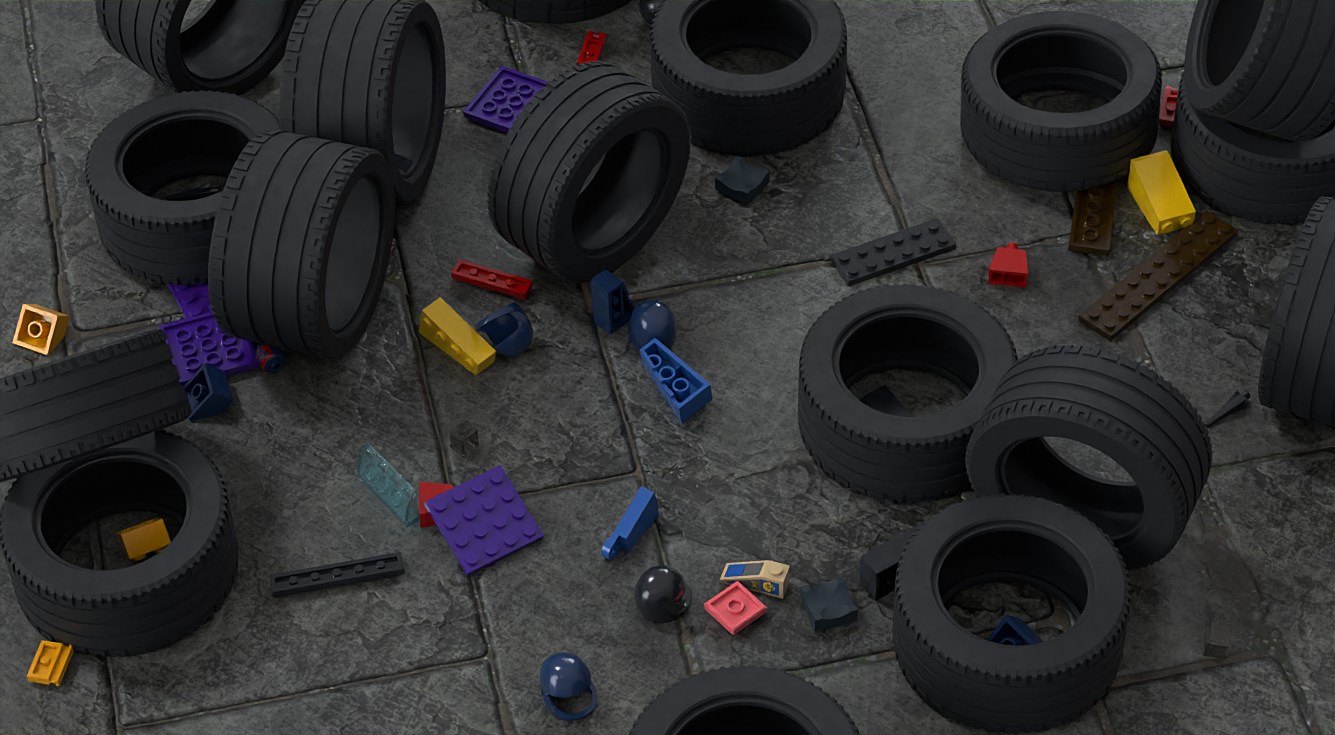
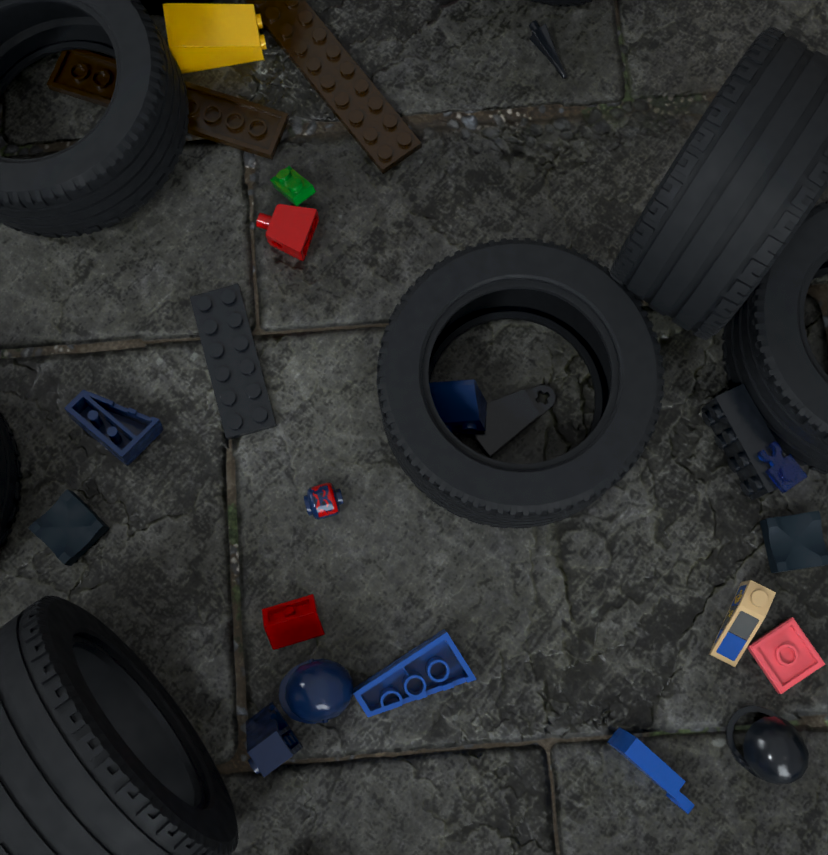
camera: 80 degrees left, 30 degrees up
(699, 311) = (292, 622): none -> red panel
(794, 315) = (323, 501): none -> dark blue head
(821, 189) = (115, 427): none -> dark blue wedge
(881, 561) = (783, 471): none -> clear blue plate
(884, 367) = (460, 405): none -> dark blue slope
(1046, 259) = (292, 185): none -> green plate

